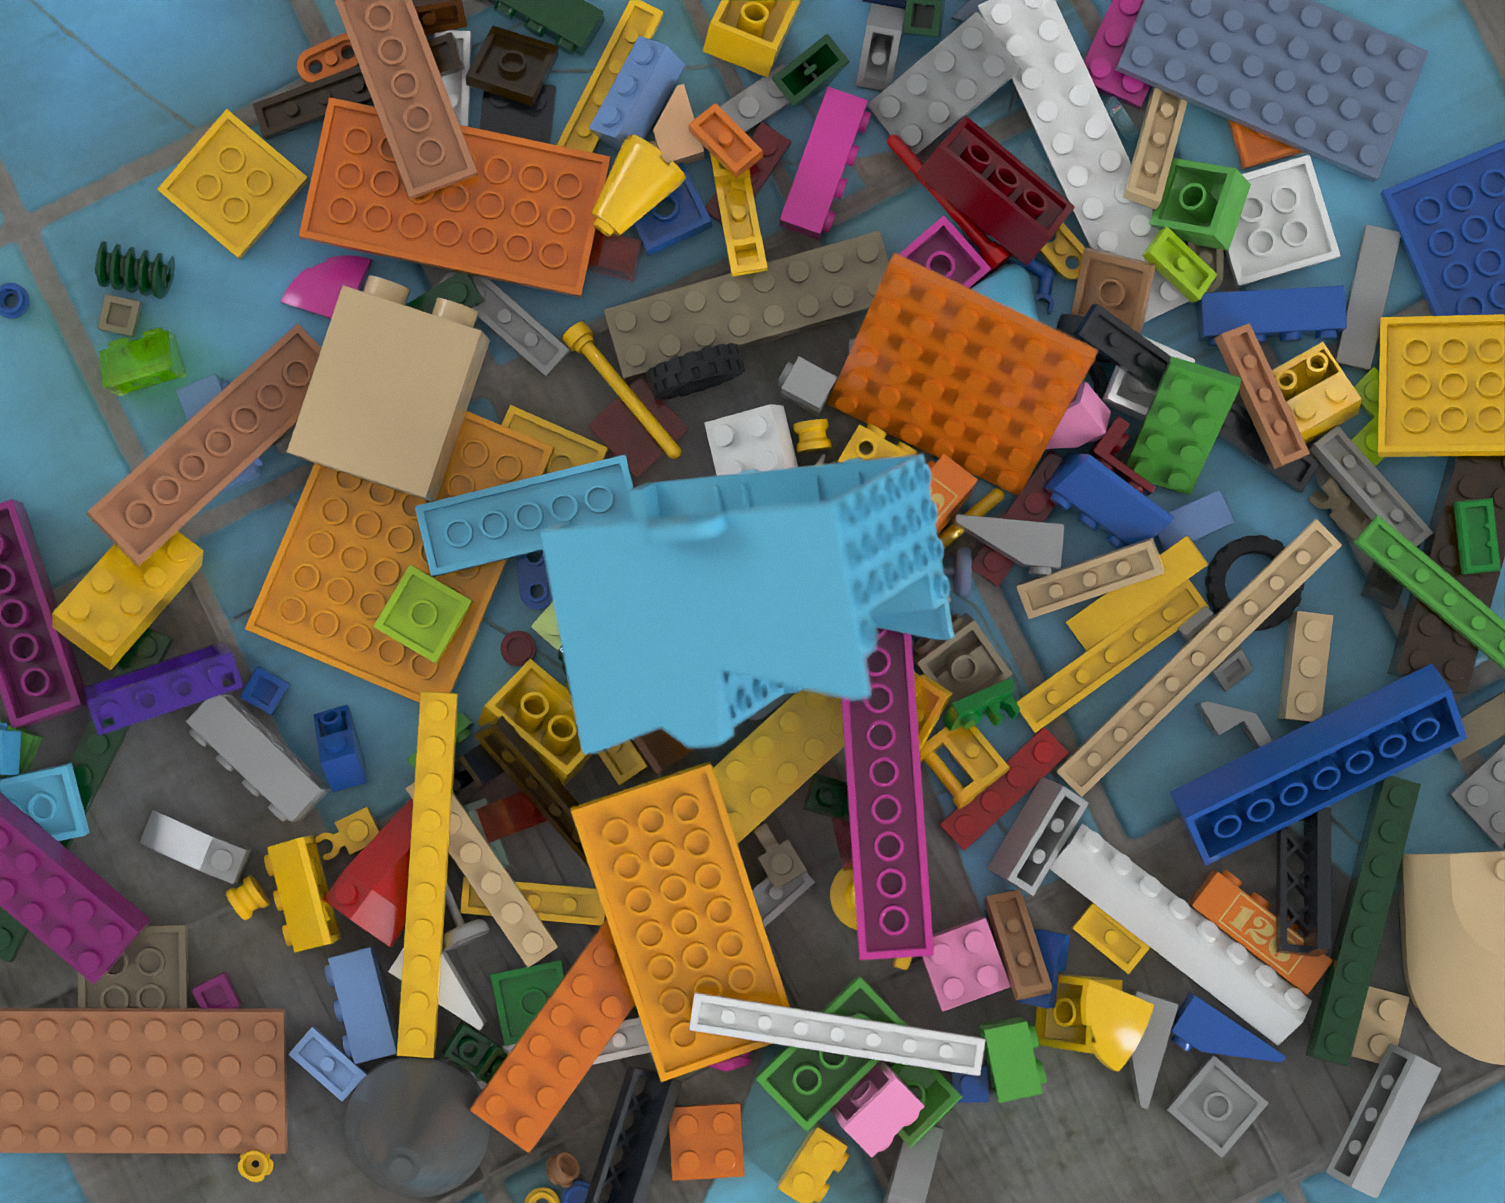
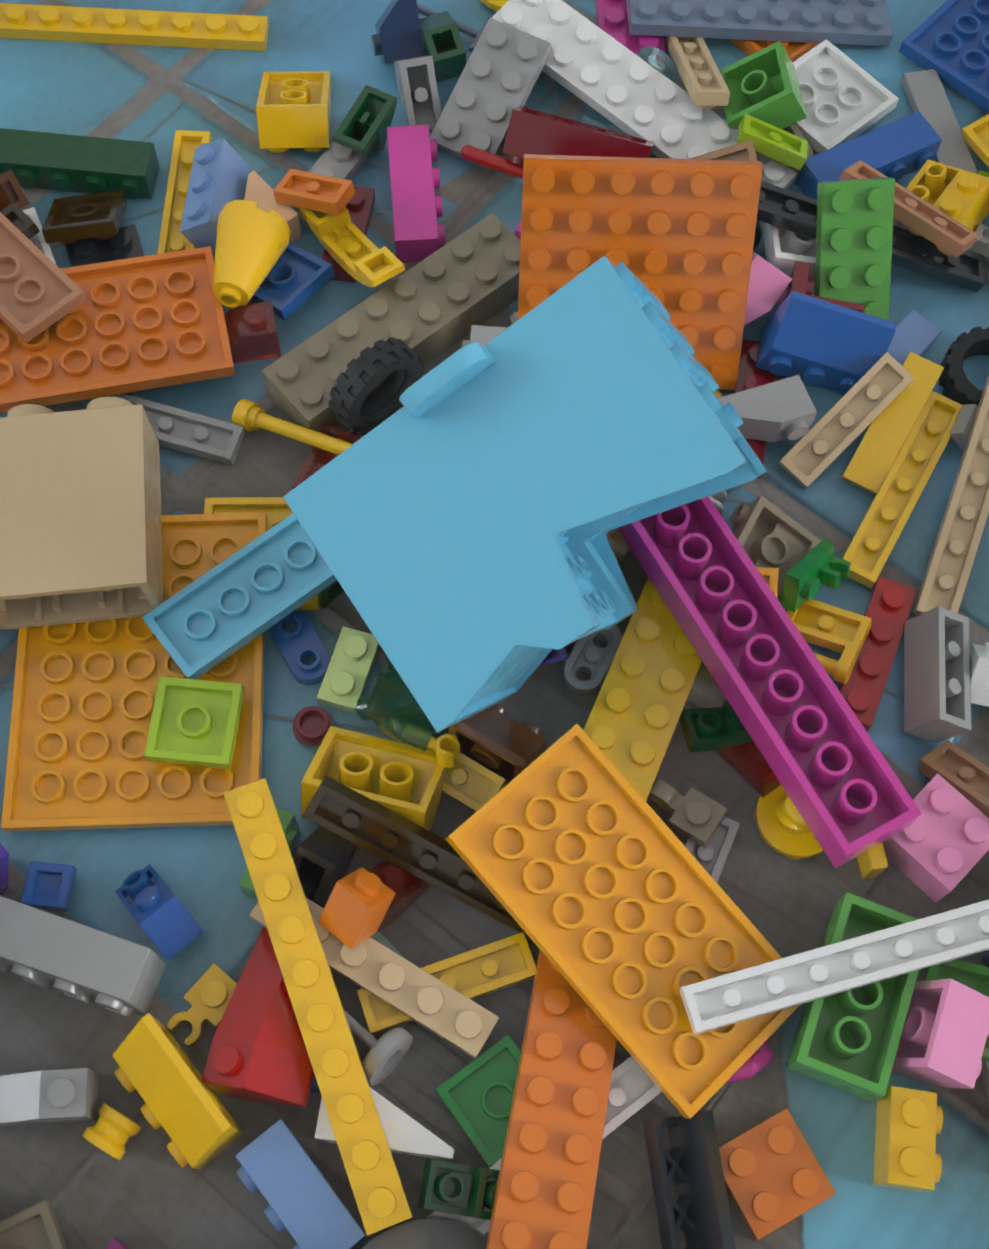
camera: 25 degrees left, 20 degrees down
(485, 823) = (356, 907): none -> orange brick

